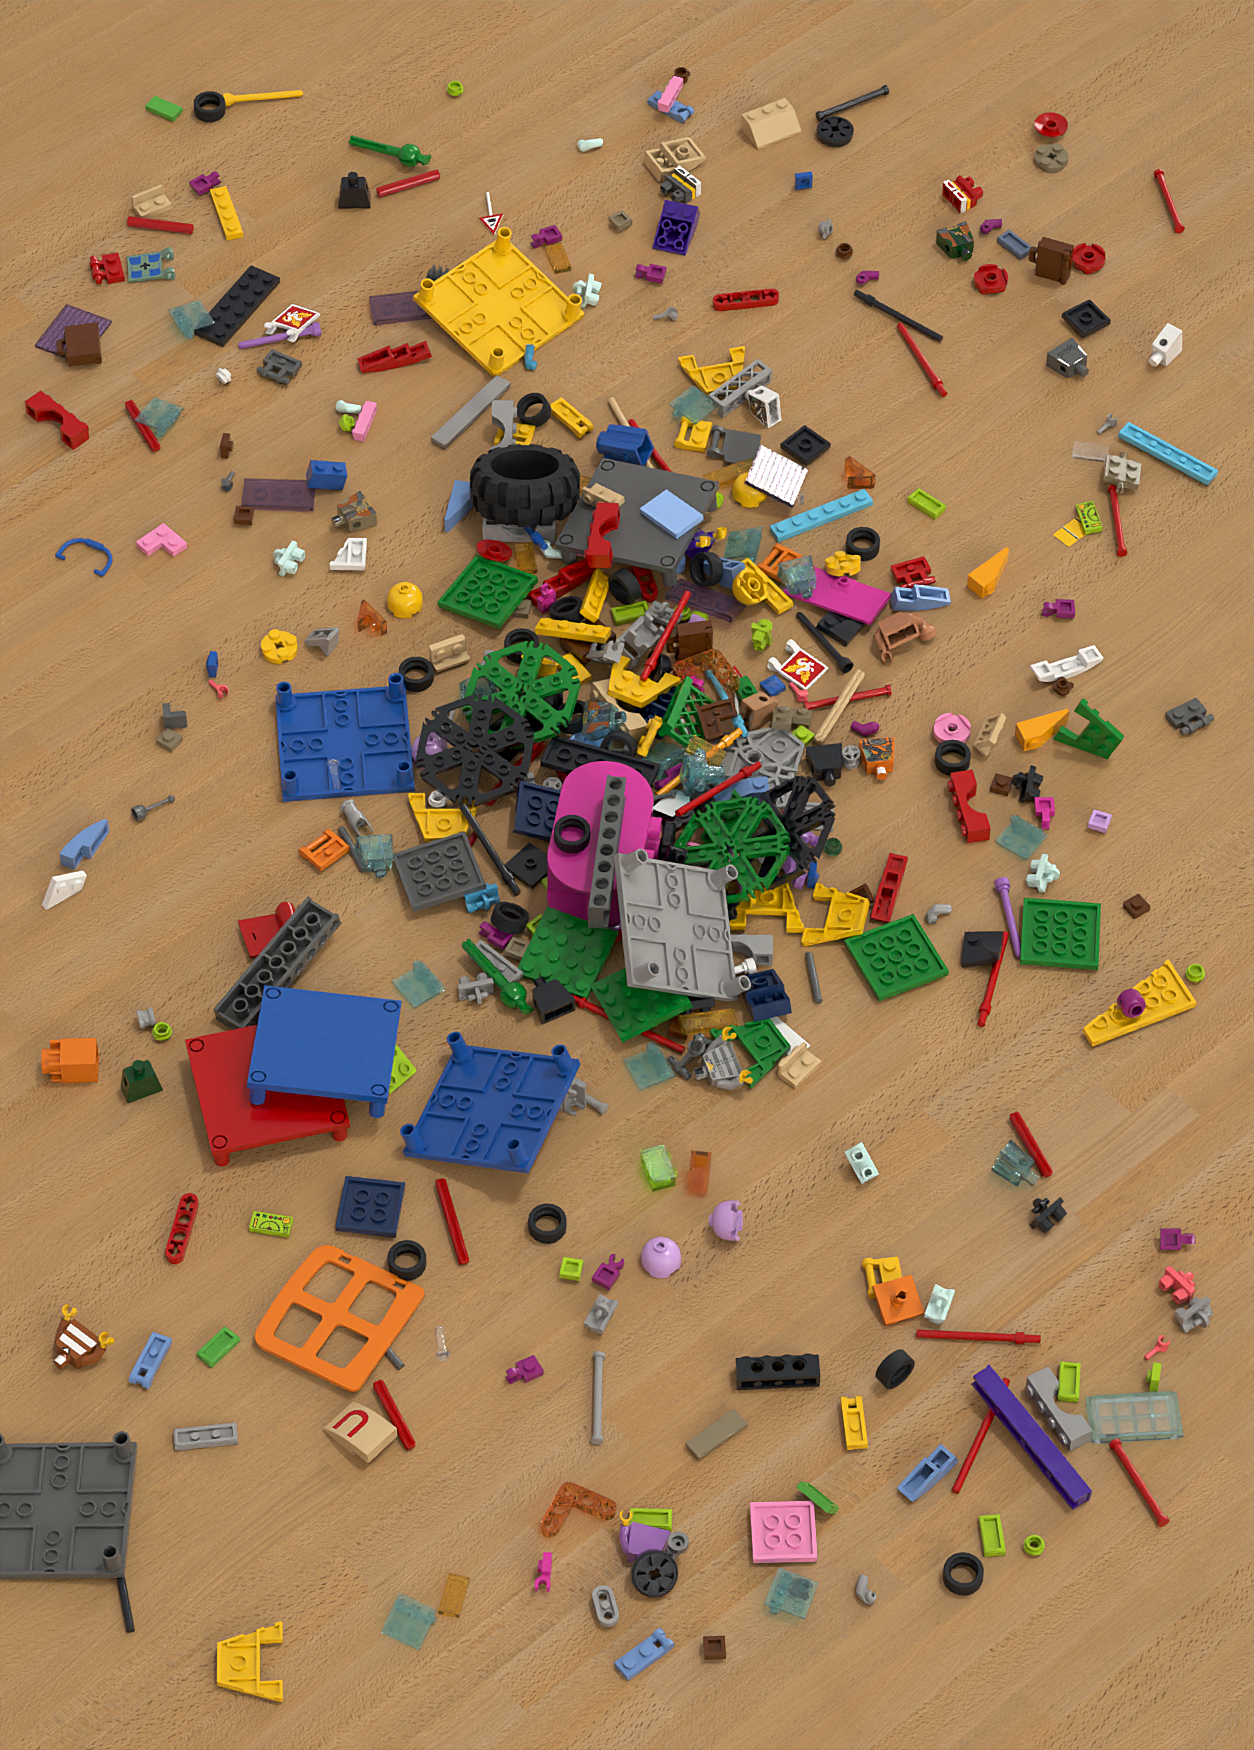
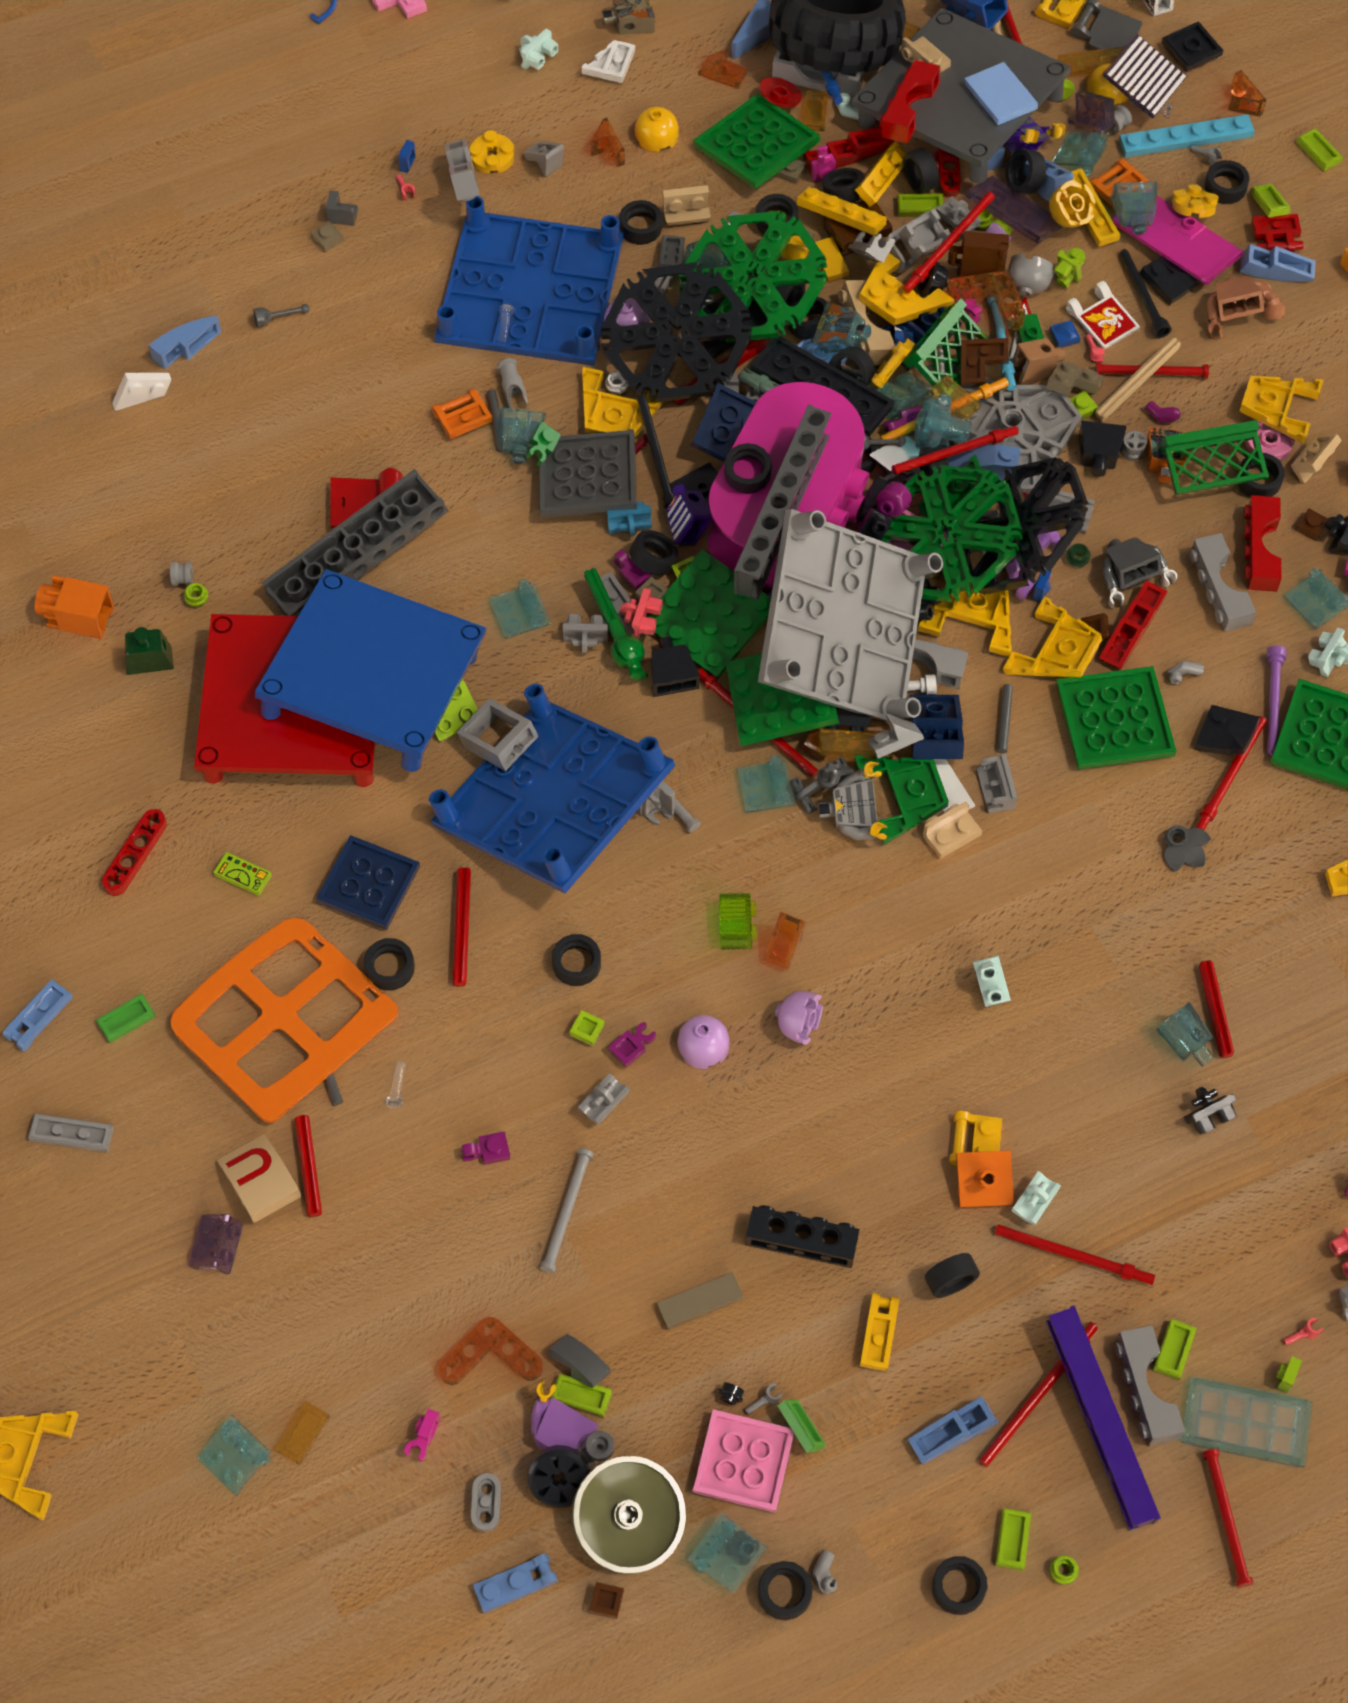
camera: 15 degrees right, 10 degrees up
(265, 666) = (462, 170): none -> light grey arch
(343, 1483) = (216, 1243): none -> bracket
(398, 855) = (543, 441): none -> green plate
(440, 543) = (723, 71): none -> clear orange slope
(447, 690) = (671, 250): none -> dark grey plate
(447, 1084) = (504, 753): none -> light grey window
(519, 956) = (638, 613): none -> coral hips
(527, 884) = (688, 516): none -> dark purple torso
(552, 774) = (759, 383): none -> sand green pin
(645, 1495) = (581, 1360): none -> dark grey slope
(648, 713) = (902, 334): none -> sticker
(683, 835) = (893, 499): none -> magenta head
(712, 1585) = (628, 1514): none -> olive dish
(733, 647) = (1030, 275): none -> light grey cylinder
(740, 1006) = (901, 735): none -> light grey slope
(744, 512) = (1093, 112): none -> bracket
(759, 1489) = (731, 1393): none -> black plate
(764, 514) = (1122, 119): none -> light grey wheel
(787, 1487) = (767, 1398): none -> light grey hand
(822, 1025) = (997, 784): none -> light grey hinge
(844, 1594) = (803, 1577): none -> black tyre
(845, 524) = (1212, 153): none -> light grey hand
(875, 843) = (1132, 563): none -> dark grey torso
(900, 550) = (1270, 200): none -> lime tile
(909, 736) = (1205, 440): none -> green fence
(943, 700) = (1269, 400): none -> yellow wing
(960, 858) = (1231, 606): none -> light grey arch
(977, 1039) = (1188, 850): none -> dark grey plate

